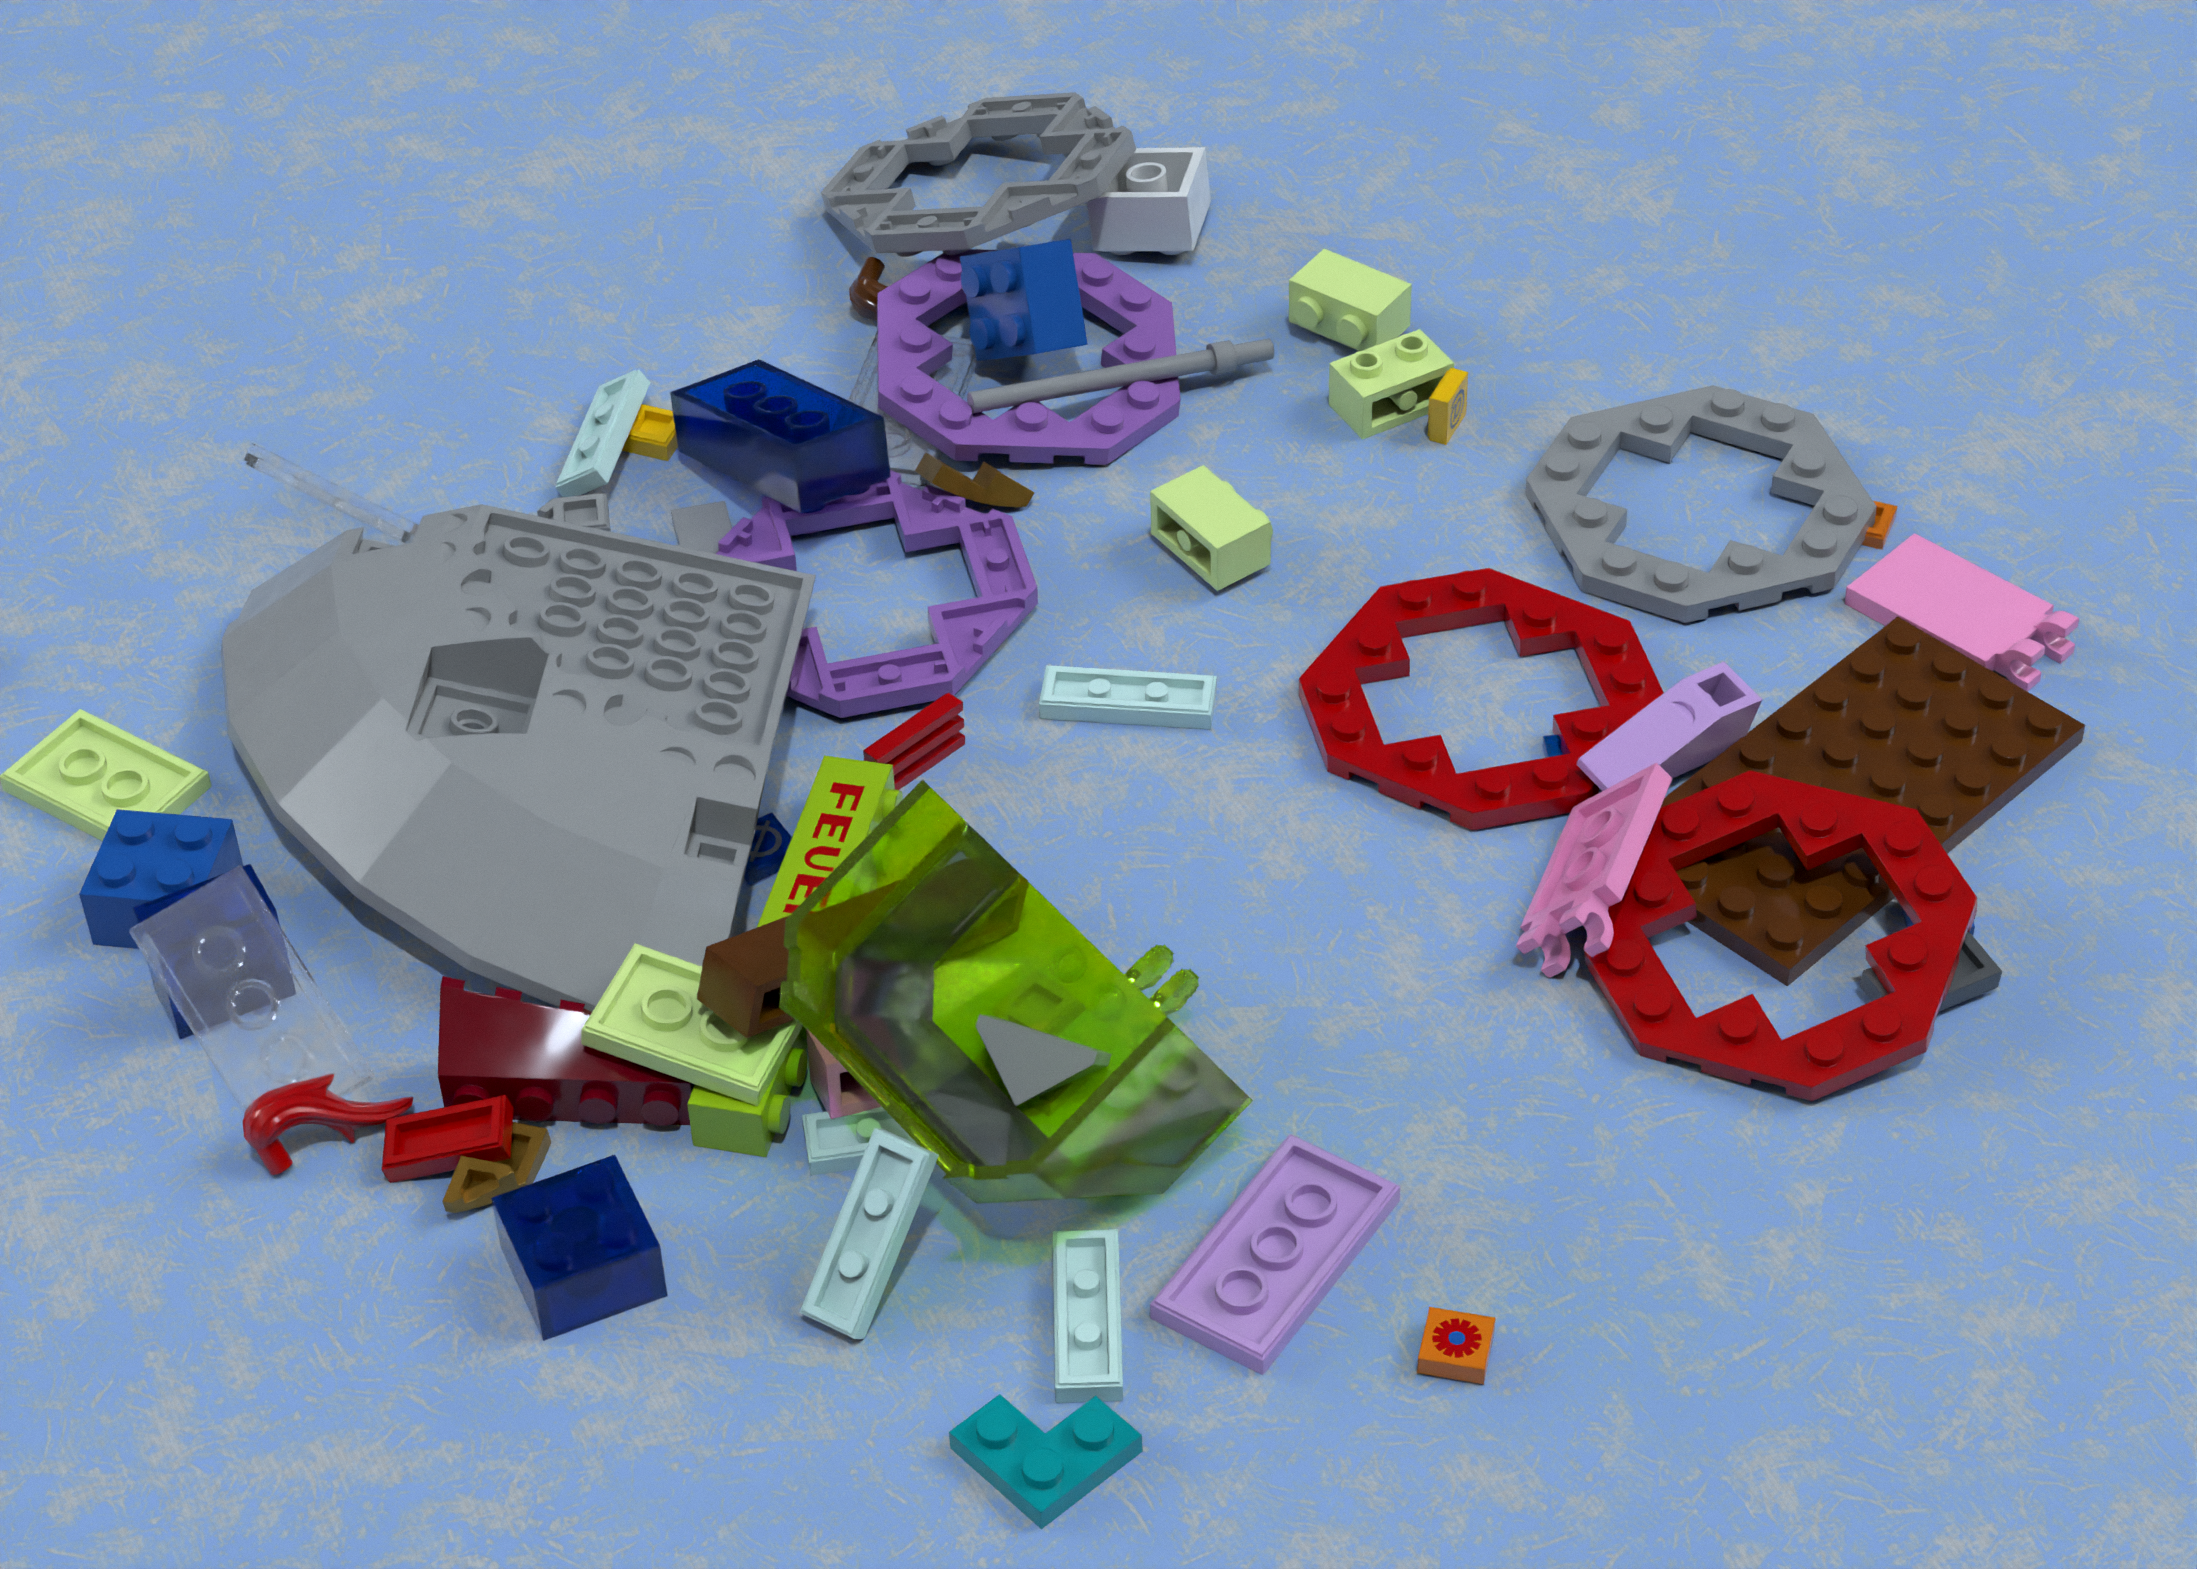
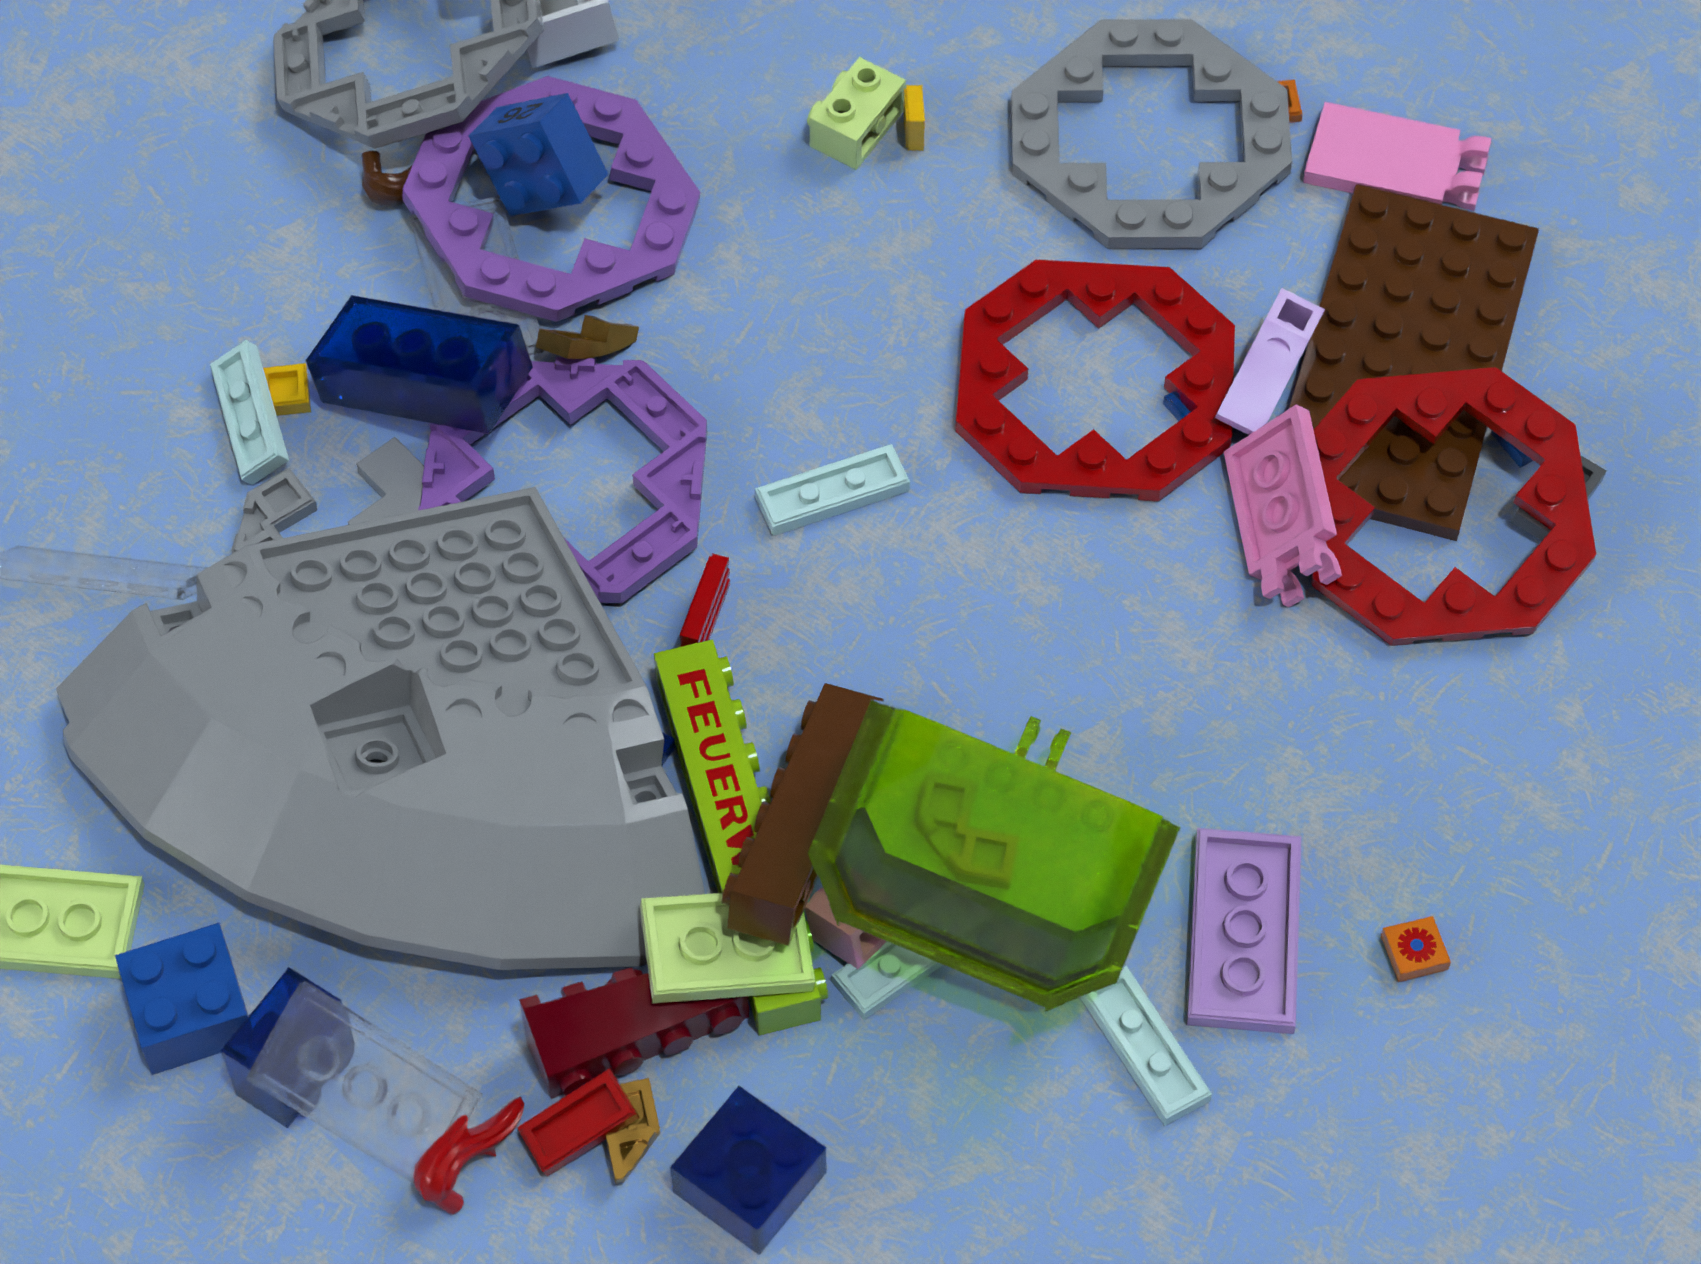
camera: 30 degrees left, 15 degrees up
(869, 1233) = (971, 1062): light aqua tile -> none
(1034, 1060) = (990, 851): light grey slope -> none
(1045, 1470) = (1191, 1187): teal plate -> none
(1211, 527) = (808, 309): yellowish green brick -> none
(1217, 358) = (707, 143): light grey bar -> none
(1349, 301) = (781, 48): yellowish green brick -> none

